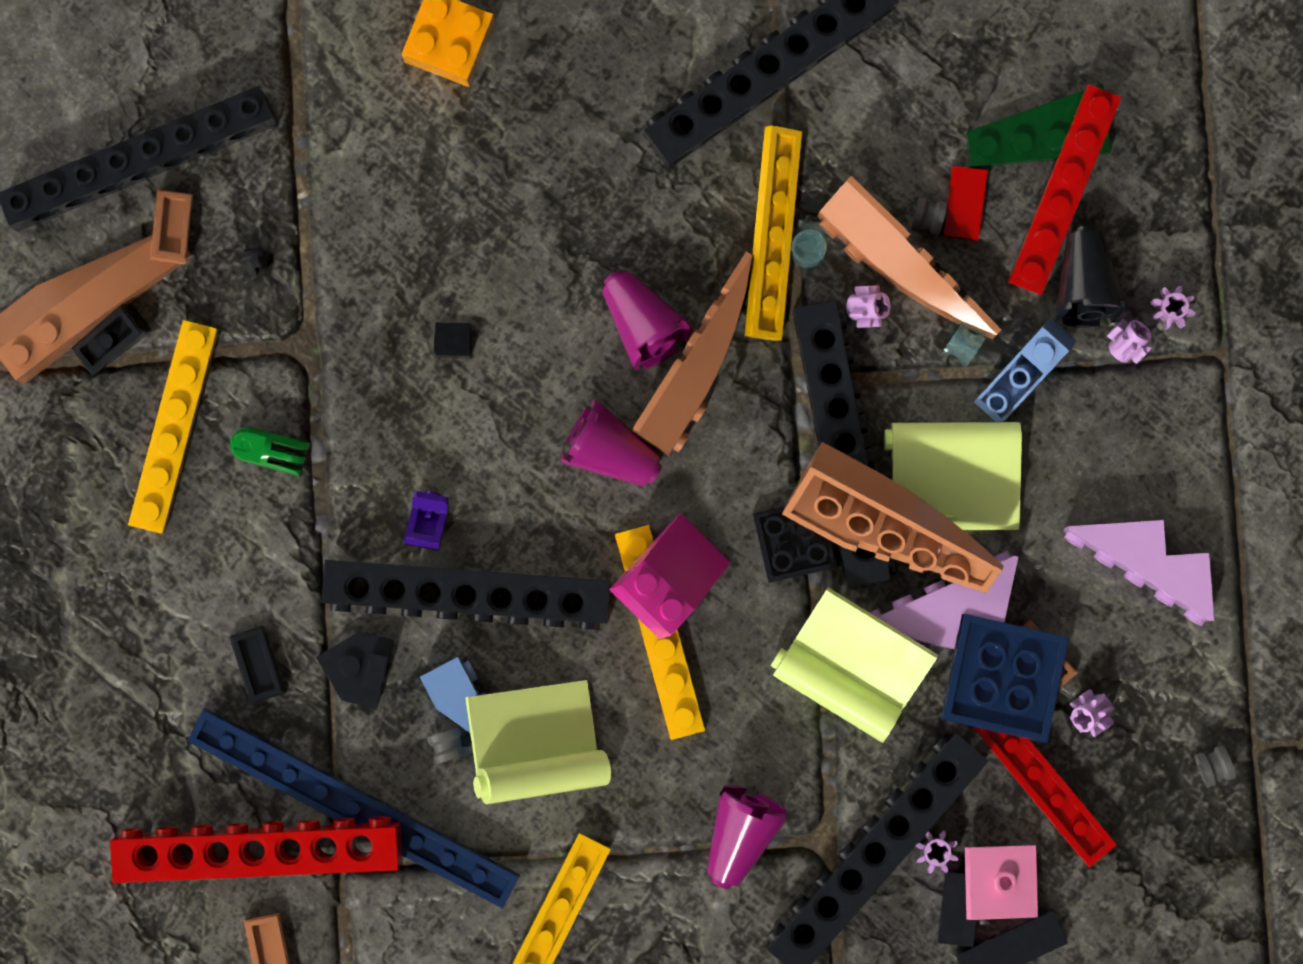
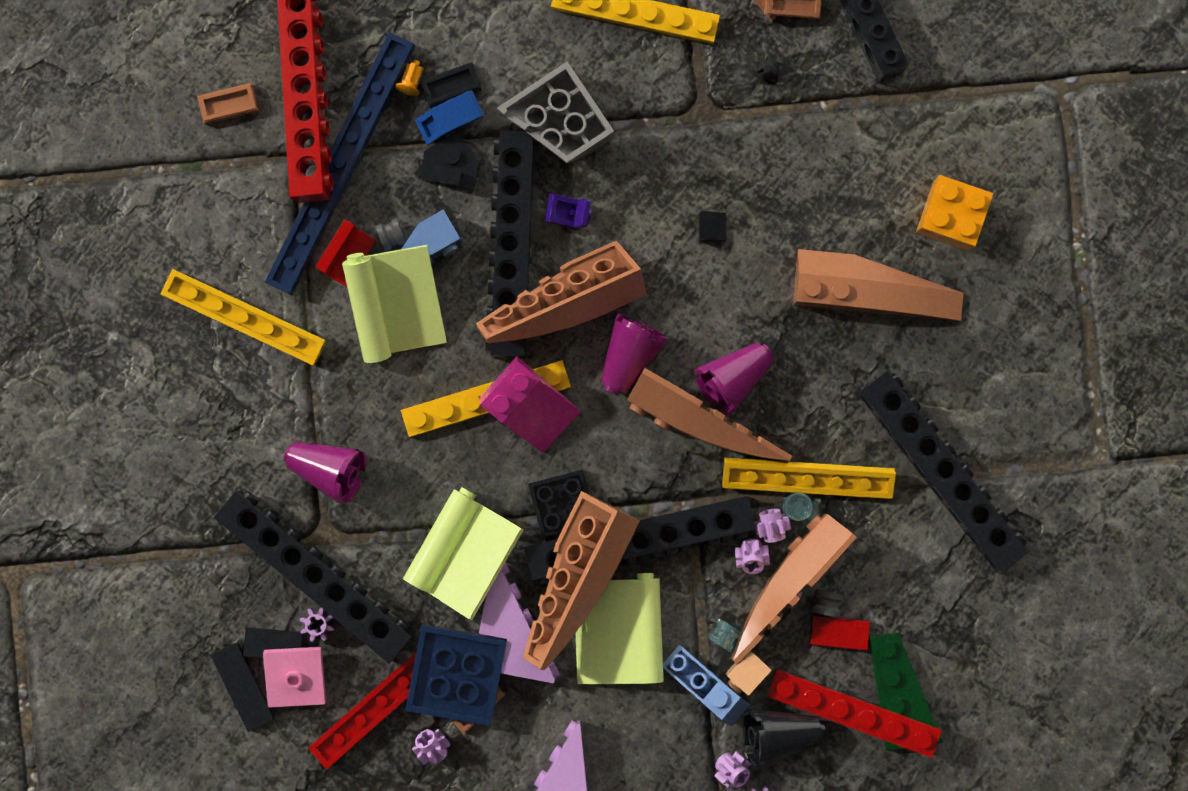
camera: 90 degrees right, 0 degrees up
(248, 715) = (410, 79): none -> light orange piece
(258, 447) = (619, 86): green arm -> none
(300, 667) = (449, 116): none -> blue slope
(305, 525) = (560, 115): none -> light grey wedge
(459, 802) = (345, 242): none -> red panel
(534, 152) = (867, 286): none -> nougat wedge
(535, 515) = (577, 294): none -> nougat wedge
(830, 280) = (772, 525): none -> lavender gear
(1013, 318) = (747, 674): none -> light nougat brick

